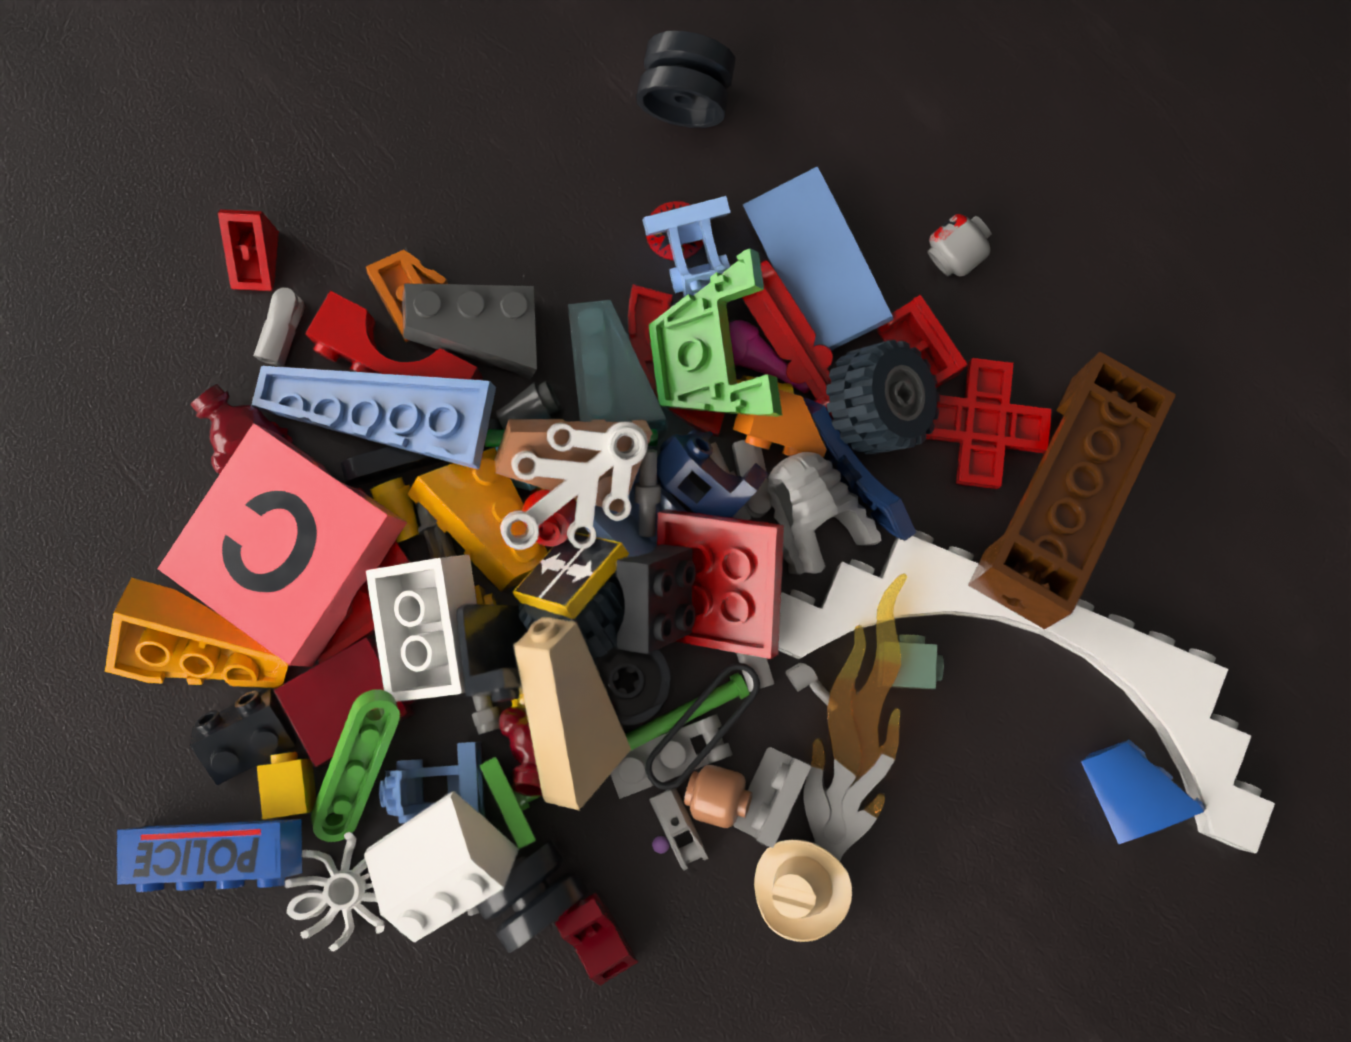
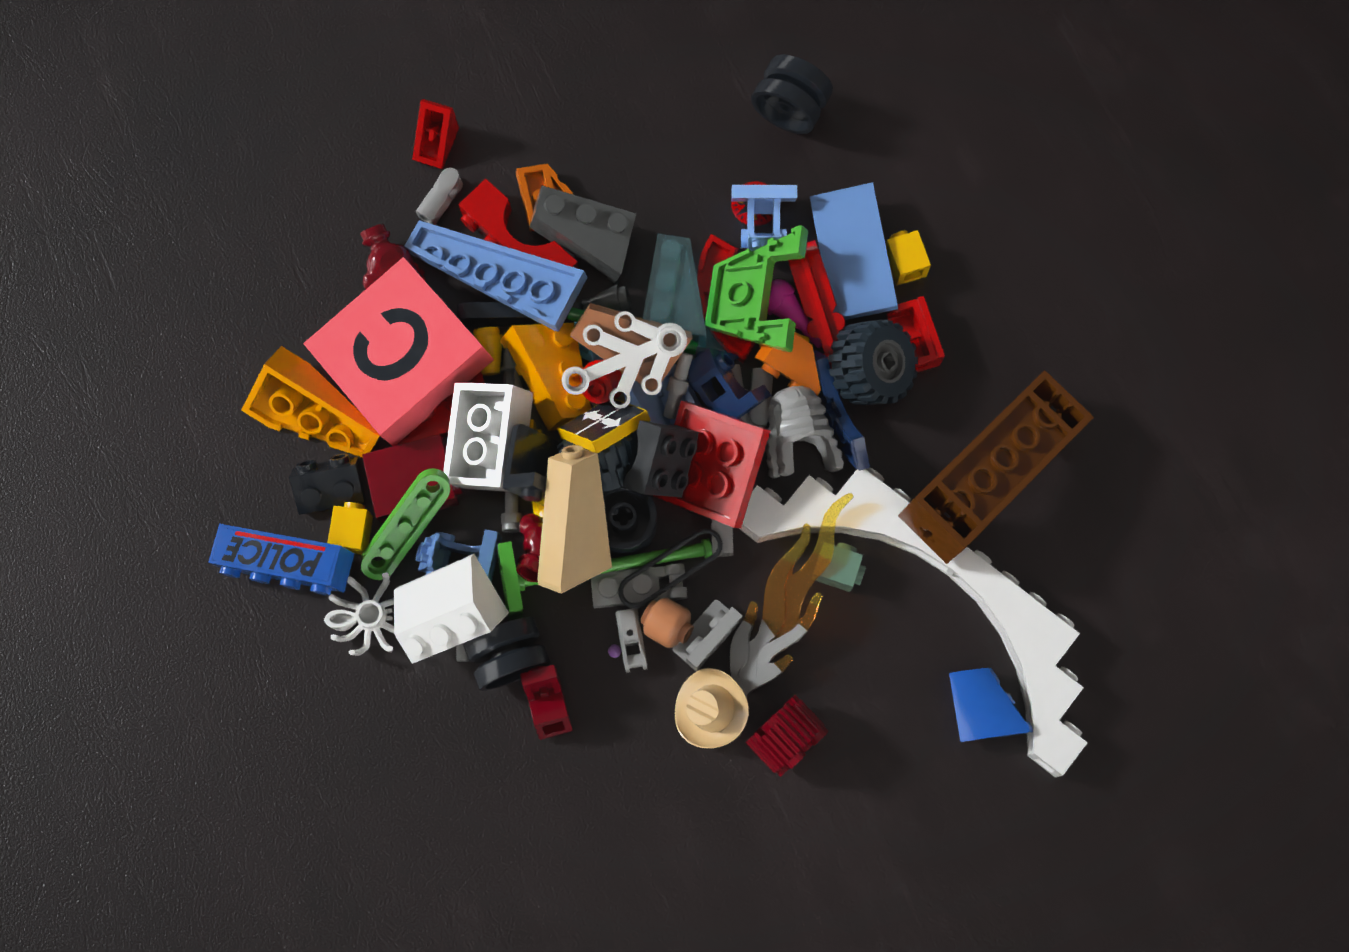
camera: 15 degrees right, 5 degrees down
(803, 675) = (757, 554): light grey hand -> none
(885, 248) = (907, 257): none -> yellow brick
(907, 899) = (787, 736): none -> dark red brick
(960, 245) = (965, 268): light grey head -> none
(989, 424) = (948, 405): red plate -> none

